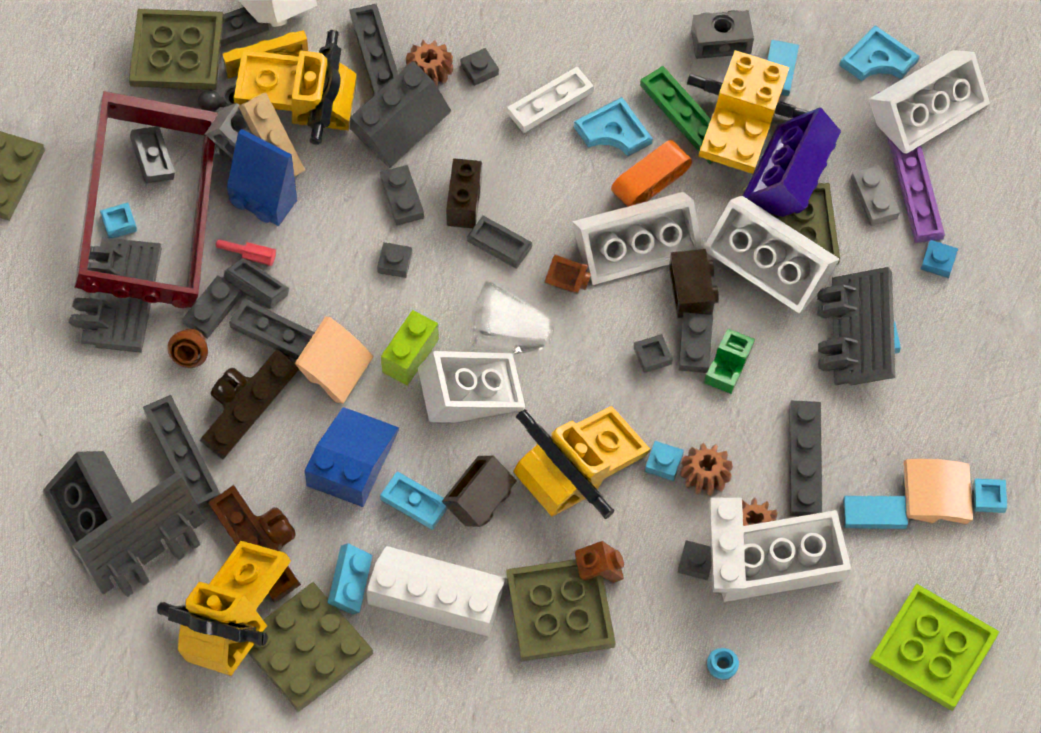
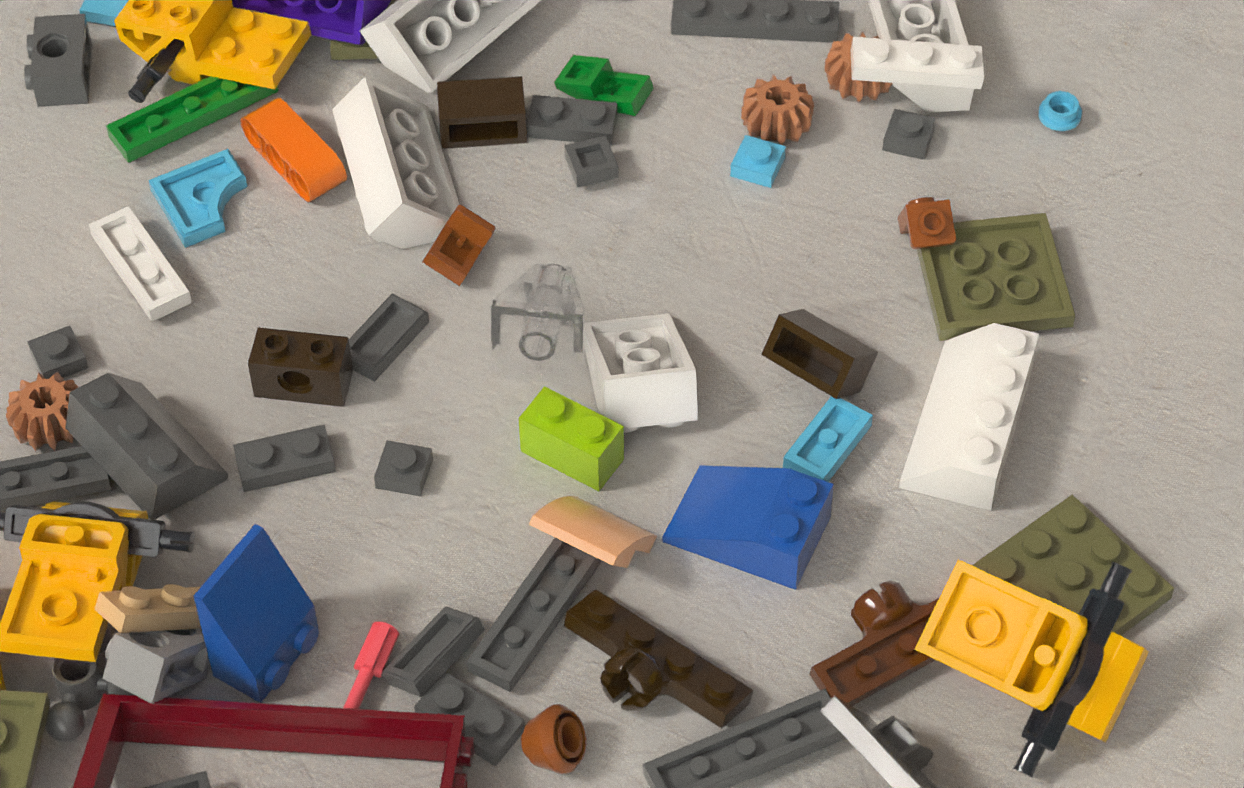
camera: 85 degrees left, 10 degrees down
(350, 579) = (943, 515): medium azure plate -> none
(577, 459) = (776, 236): yellow piece -> none

